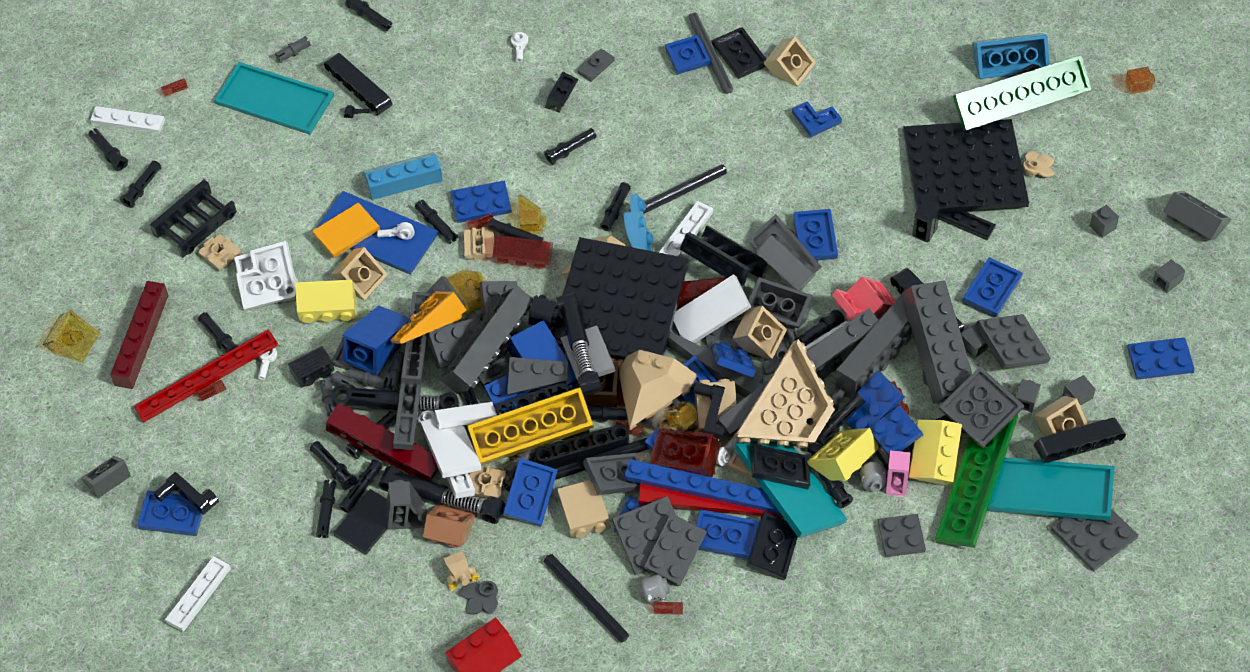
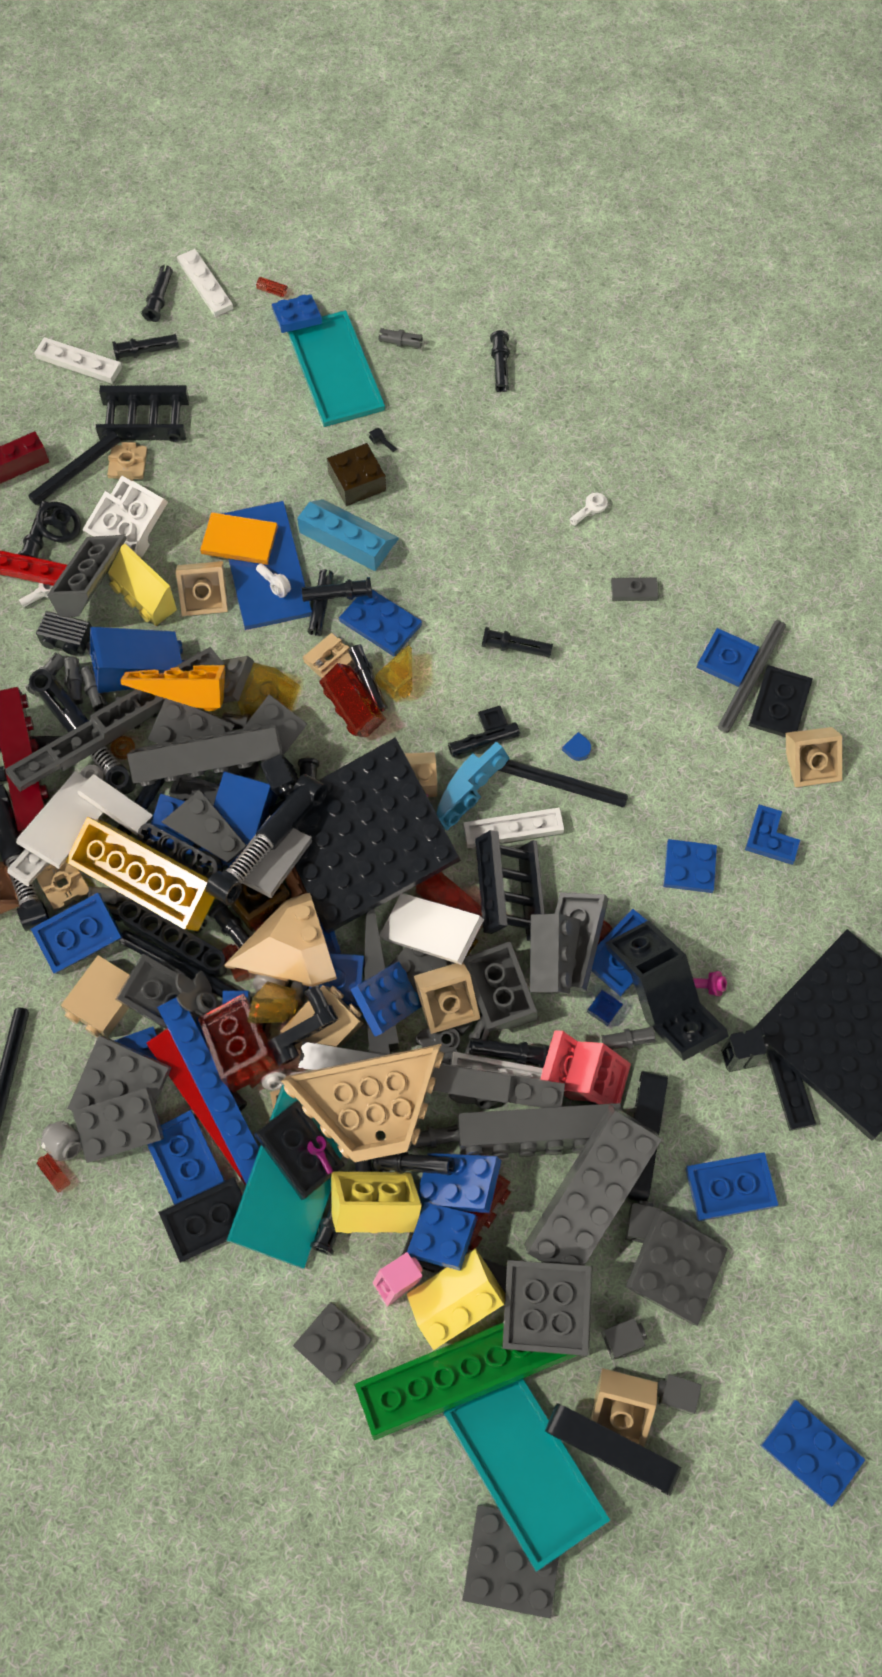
camera: 45 degrees right, 10 degrees up
(109, 226) = (78, 360): none -> white plate
(193, 282) = (74, 468): none -> black axle
(212, 88) = (296, 313): none -> blue plate
(226, 315) = (62, 512): none -> black piece
(292, 318) = (84, 574): none -> dark grey slope
(357, 82) = (411, 417): black beam -> none
(368, 139) = (356, 474): none -> dark brown brick
(431, 389) = (122, 753): none -> clear orange plate
(447, 198) = (348, 589): none -> black pin
(480, 222) = (352, 639): clear red piece -> none
(561, 91) = (568, 584): black hinge -> none
(605, 193) = (492, 718): none -> black tile
(638, 454) = (195, 993): none -> dark grey plate
(668, 166) = (577, 747): none -> blue tile
(788, 455) = (320, 1153): none -> magenta hand
(794, 168) = (690, 866): none -> blue plate
(837, 269) = (604, 1008): none -> clear blue plate
(858, 227) = (666, 990): none -> black bracket
(868, 268) = (629, 1038): none -> dark grey pin
(872, 476) = (376, 1253): light grey head -> none
(873, 209) = (715, 983): none -> dark pink plate

